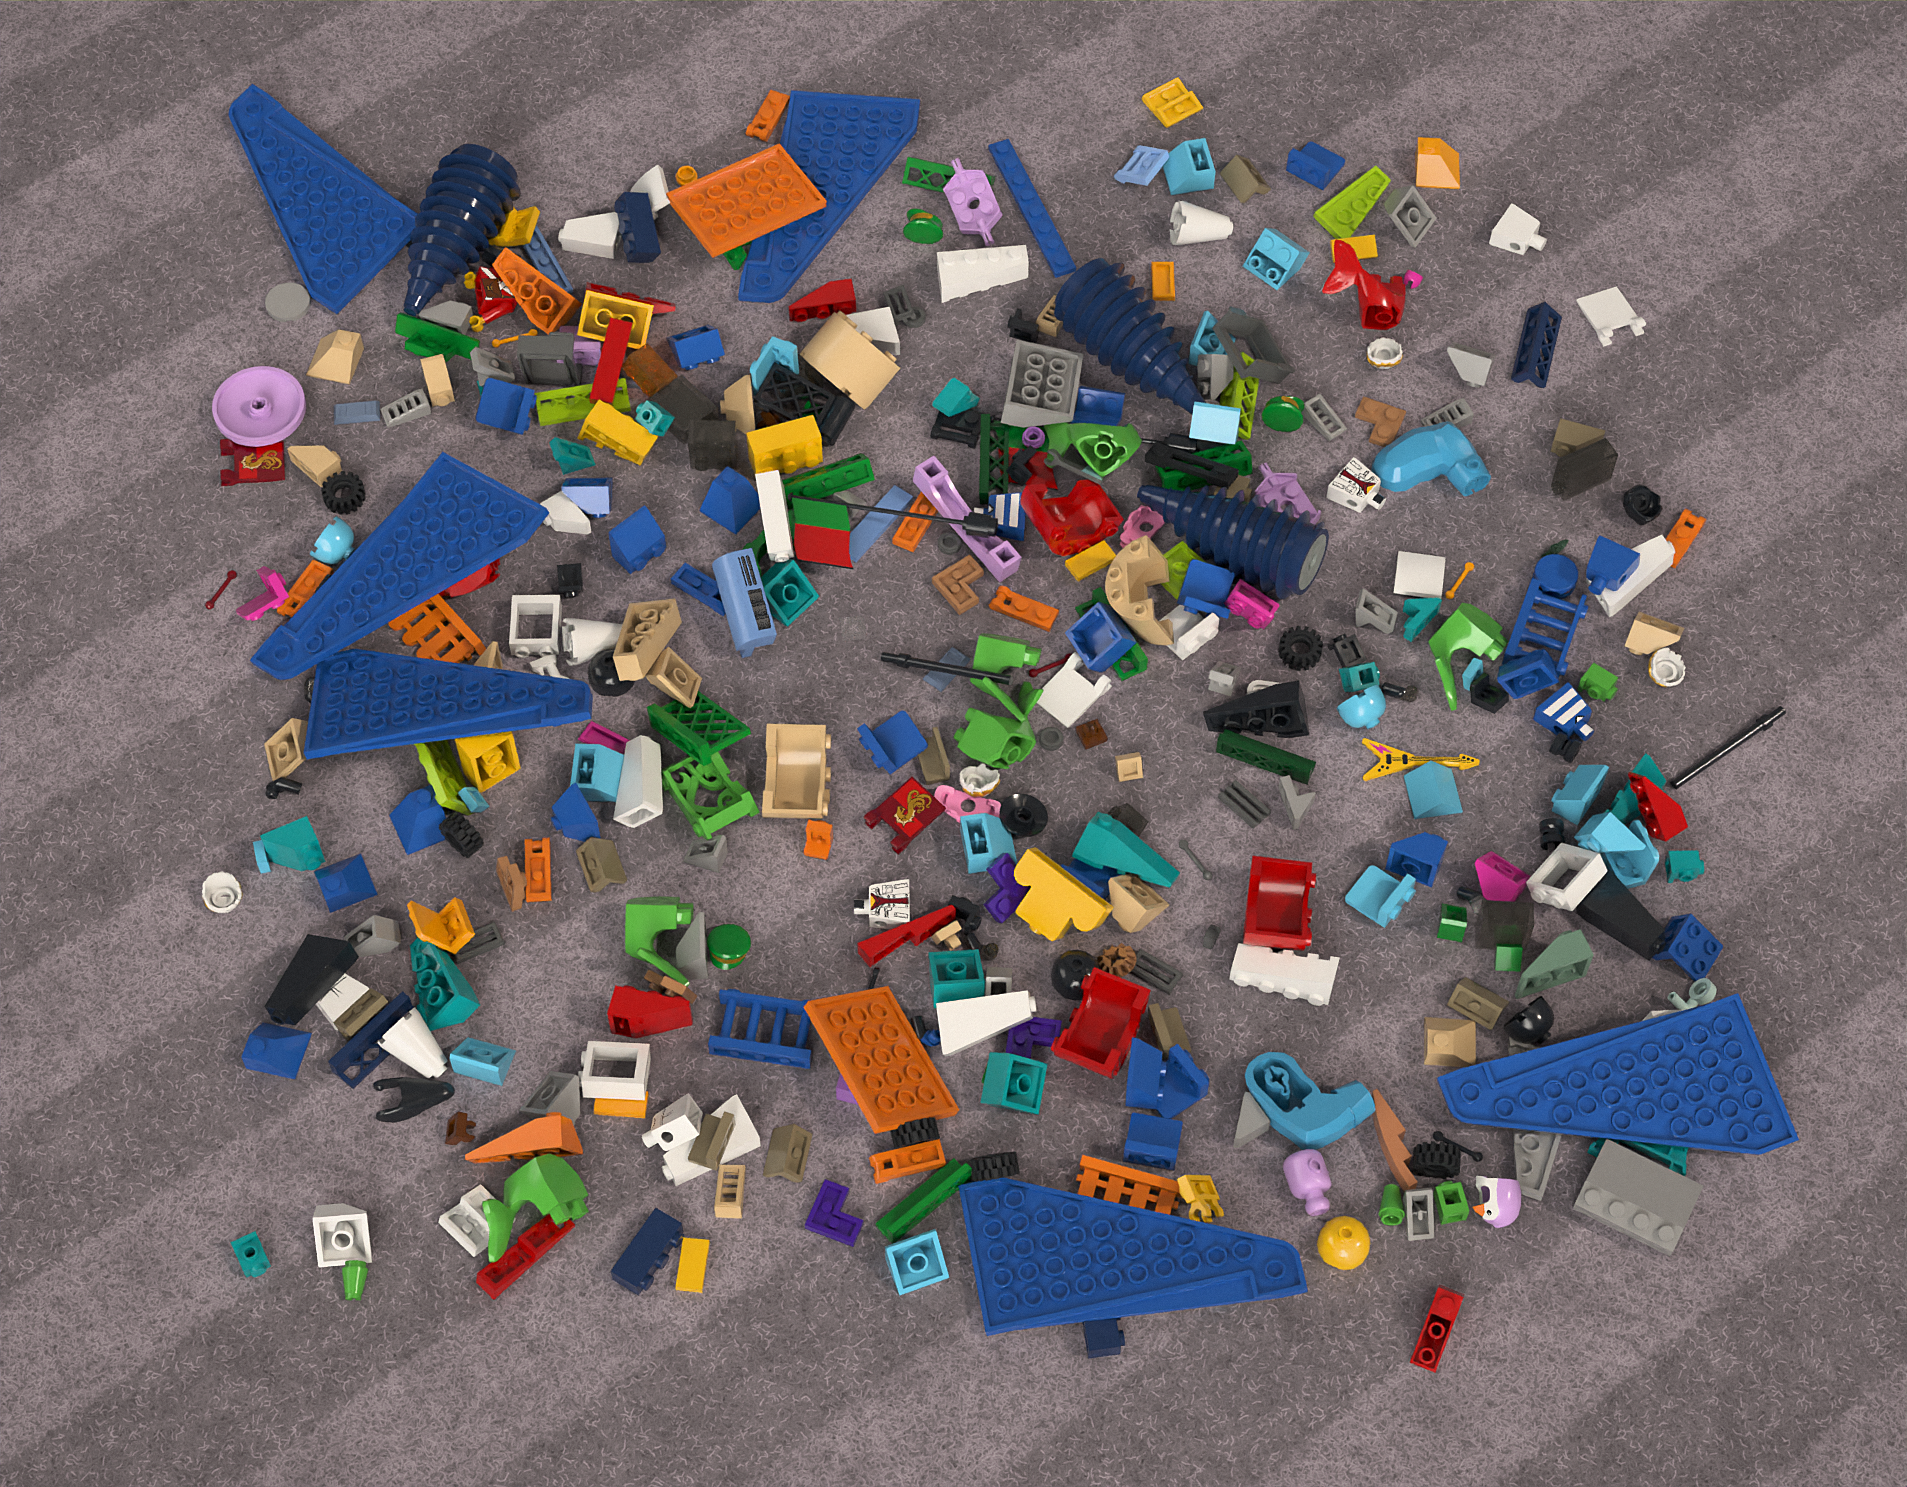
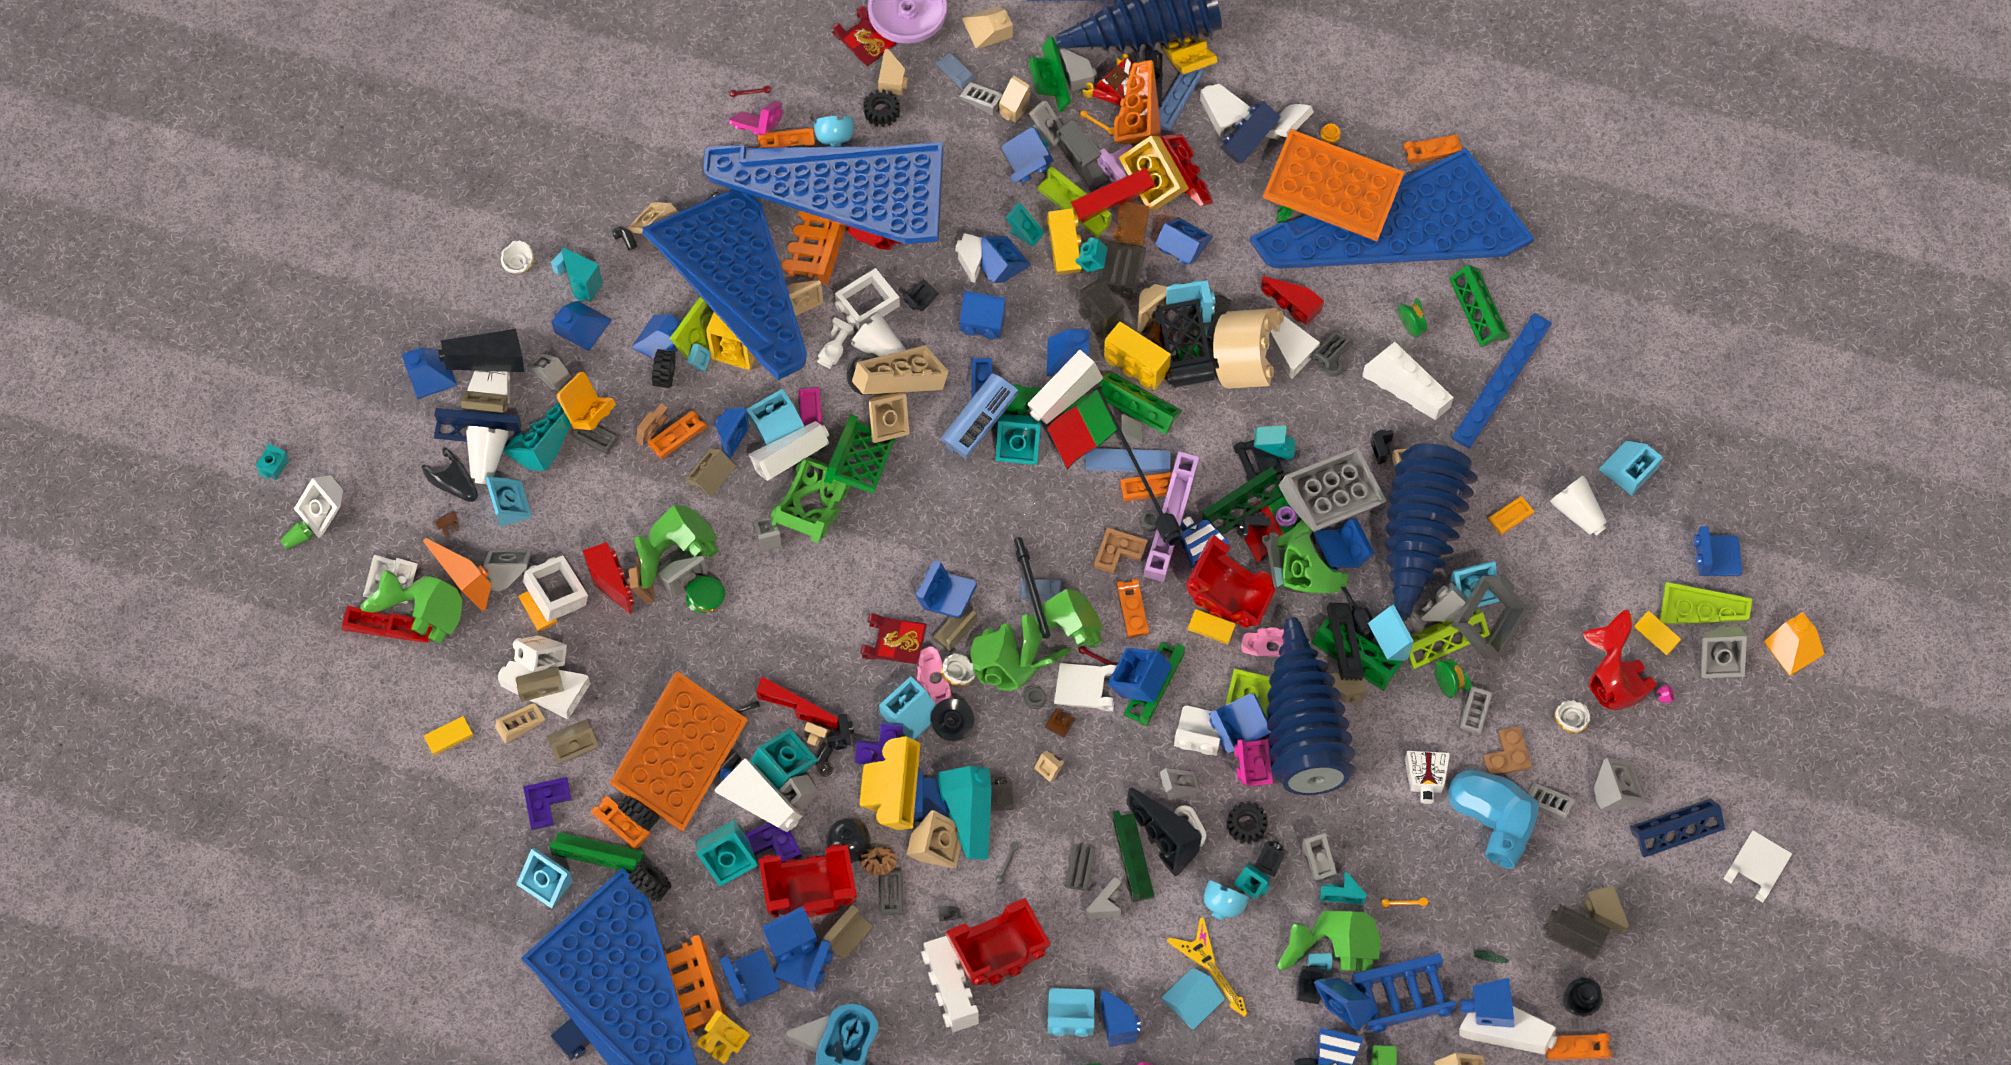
camera: 55 degrees right, 5 degrees up
(648, 1252) = (436, 700): dark blue brick -> none
(750, 1049) = (635, 660): blue fence -> none
(796, 771) = (866, 548): tan cylinder -> none
(819, 839) = (831, 597): orange bracket -> none
(886, 904) = (811, 676): white torso -> none
(965, 188) = (1471, 322): lavender plate -> none
(1126, 585) = (1192, 669): tan cylinder -> none
(1142, 165) = (1605, 431): light blue plate -> none
(1172, 102) = (1689, 414): yellow slope -> none
(1244, 178) = (1659, 512): dark tan panel -> none
(1275, 258) = (1599, 581): medium azure slope -> none
(1286, 491) = (1383, 721): lavender plate -> none
(1406, 694) = (1262, 918): arm -> none
(1419, 575) = (1383, 869): white slope -> none
(1517, 232) = (1778, 744): white torso -> none
(1557, 575) = (1461, 971): blue head -> none

